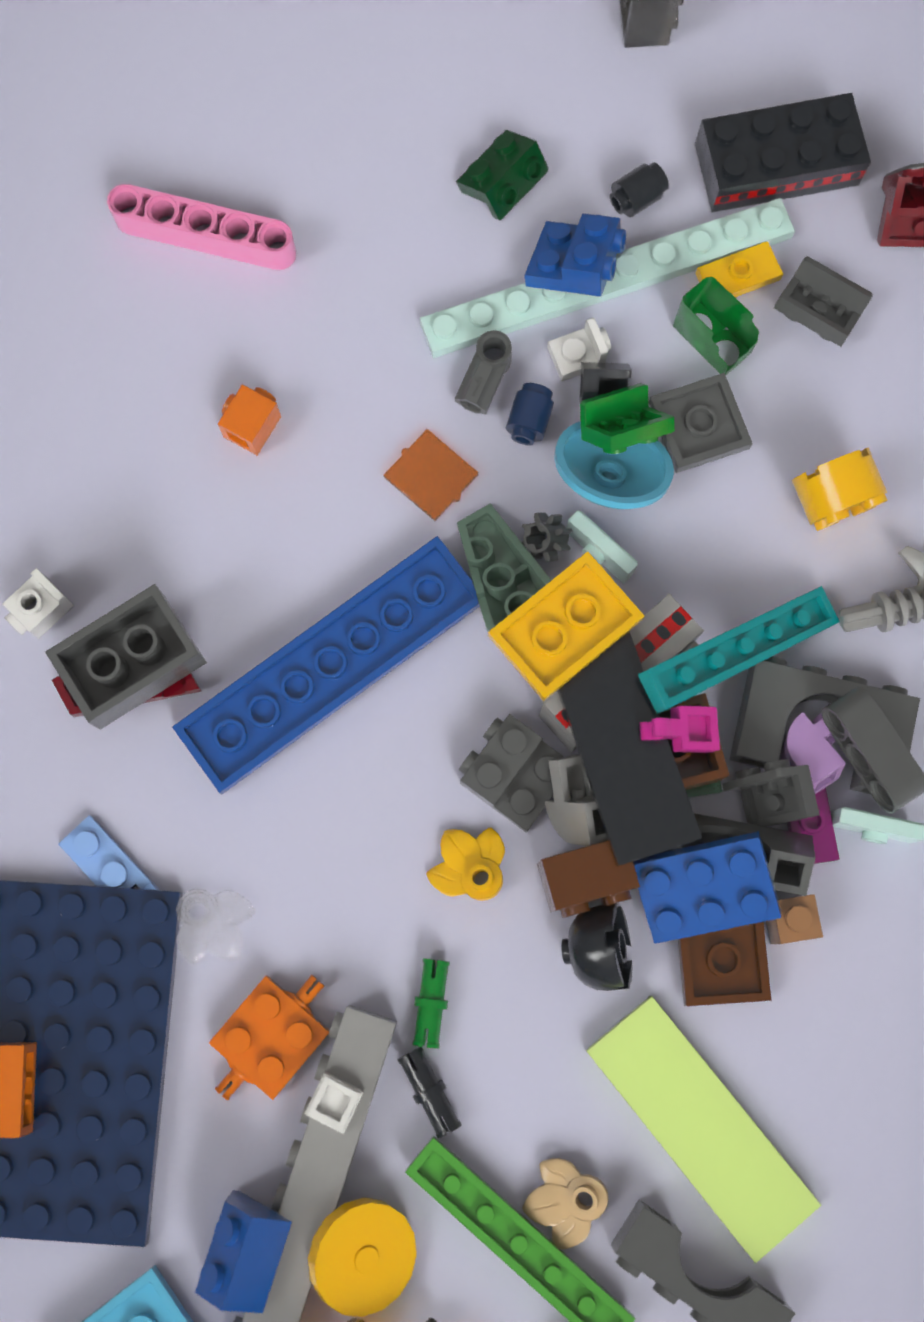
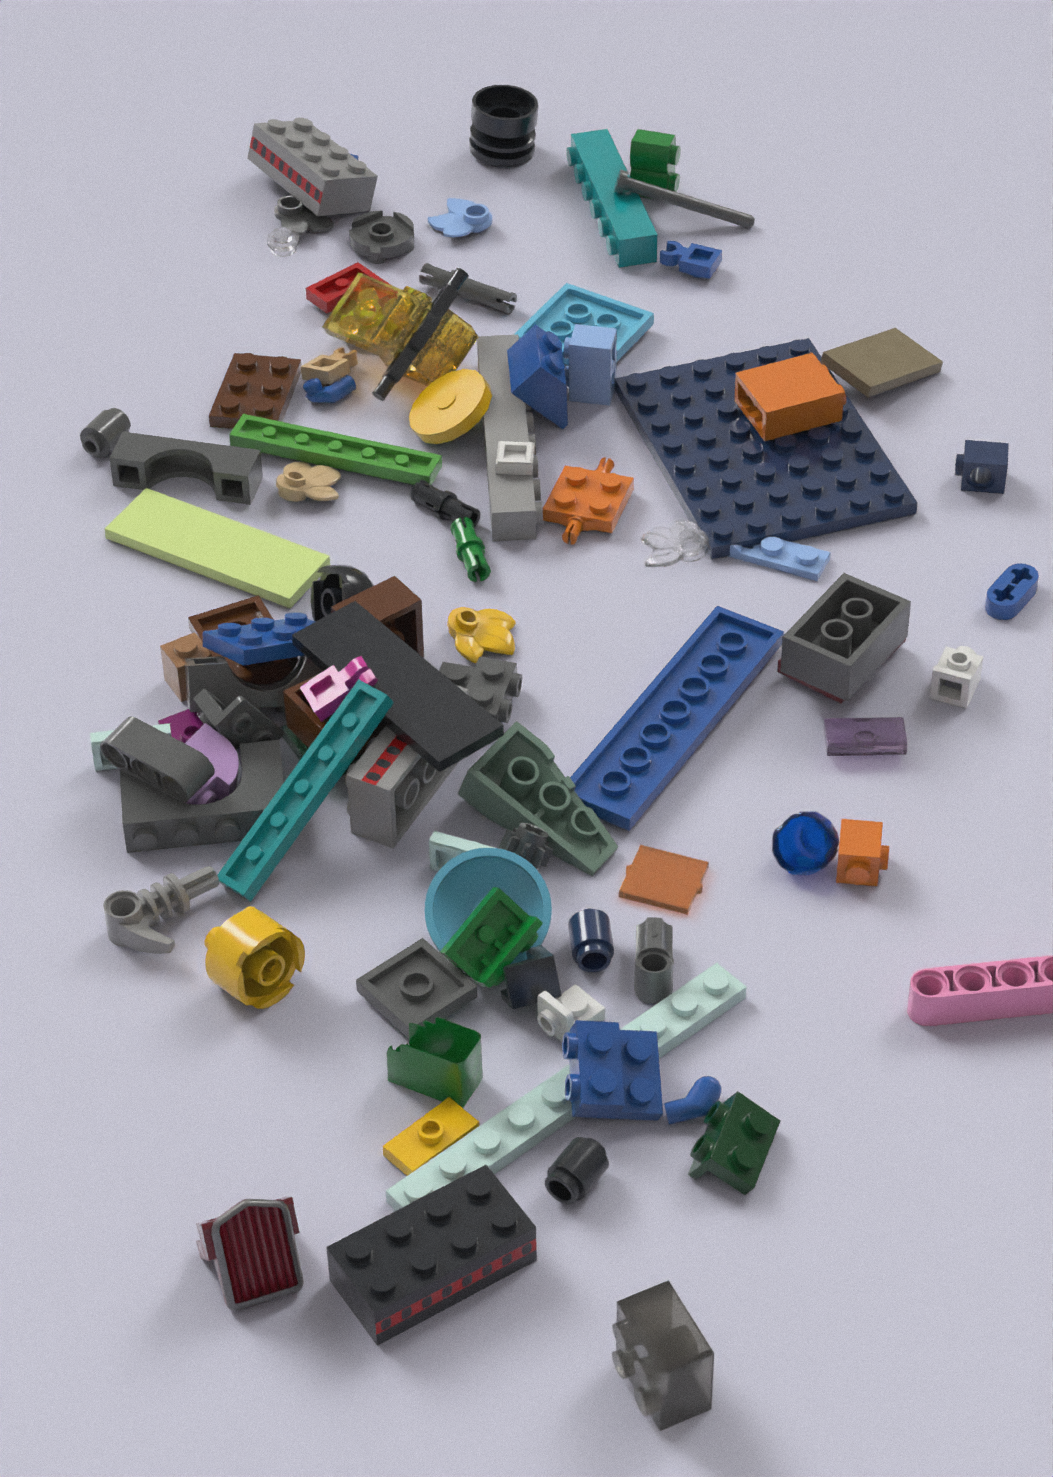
camera: 160 degrees right, 35 degrees down
(166, 563) = (865, 736): none -> clear purple plate
(168, 1258) = (591, 364): none -> light blue brick
(293, 442) = (805, 843): none -> clear blue hair
(512, 221) = (697, 1101): none -> blue arm
(565, 626) = (472, 713): yellow plate -> none
(823, 301) = (330, 1124): dark grey bracket -> none

